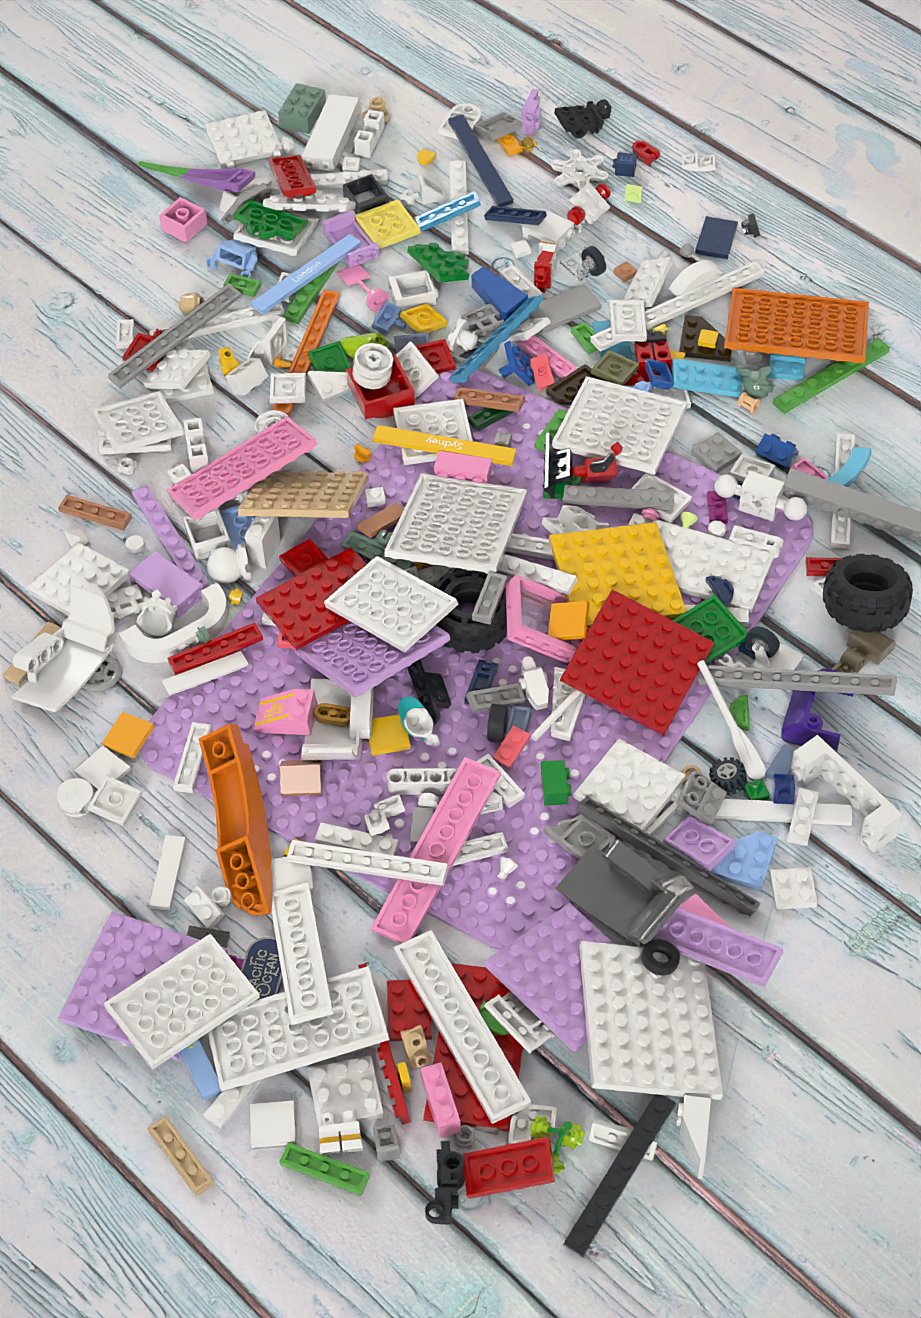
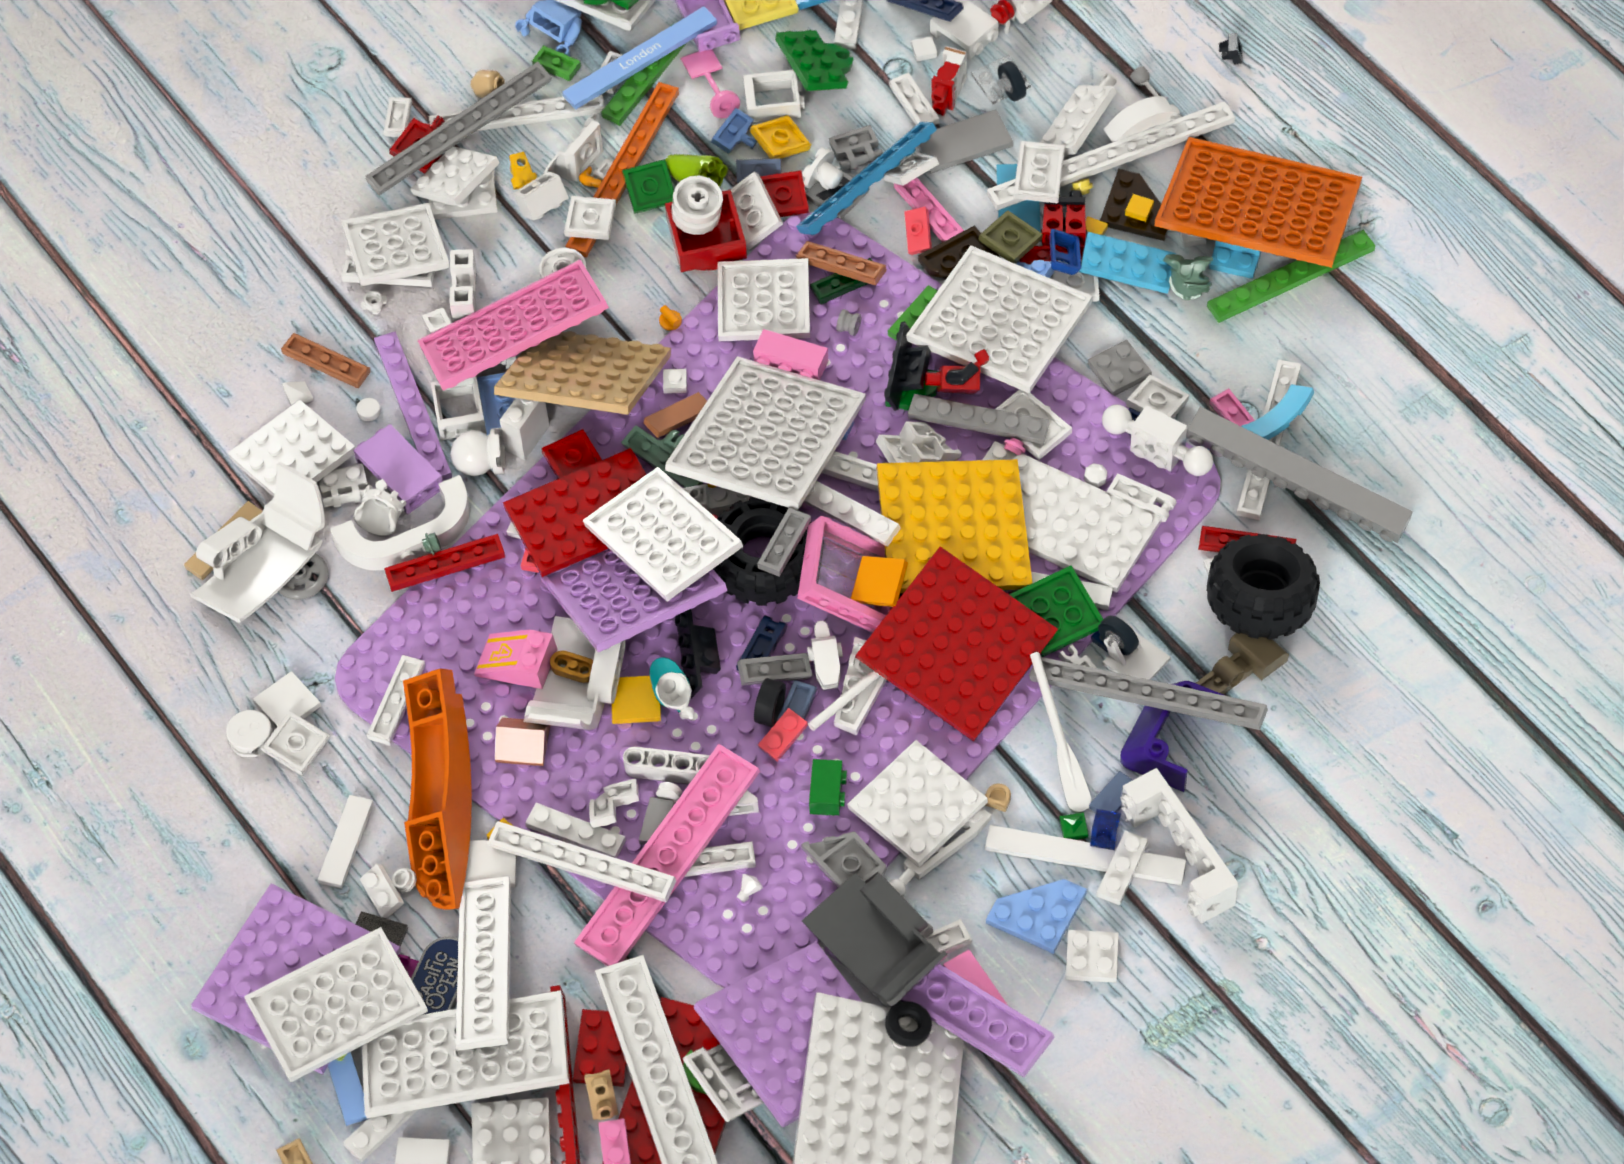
camera: 10 degrees right, 5 degrees up
(128, 735) = (323, 662): light orange tile -> none
(204, 673) = (427, 592): white piece -> none
(235, 596) = (481, 494): yellow plate -> none
(329, 384) = (643, 217): white wing -> none
(404, 1077) = (582, 1128): yellow tile -> none
(436, 443) = (768, 319): yellow tile -> none
(497, 291) = (881, 111): blue slope -> none
(505, 786) = (765, 784): white plate -> none
(517, 363) = (887, 216): blue plate -> none
(583, 335) = (981, 180): bright green plate -> none
(625, 271) = (1053, 97): nougat plate -> none
(674, 860) = (946, 898): dark grey plate -> none
(688, 519) = (1061, 458): yellowish green rock -> none
(700, 798) = (1000, 829): light grey plate -> none
(700, 842) = (989, 884): lavender tile -> none
(716, 237) = (1183, 60): dark blue tile -> none
(716, 507) = (1102, 446): magenta plate -> none
(721, 588) = (1083, 559): dark blue tile -> none
(728, 775) = (1031, 803): black wheel -> none
(740, 712) = (1074, 722): bright green tile -> none
(748, 402) = (1174, 303): light nougat bush -> none
(776, 450) = (1195, 374): blue bracket -> none

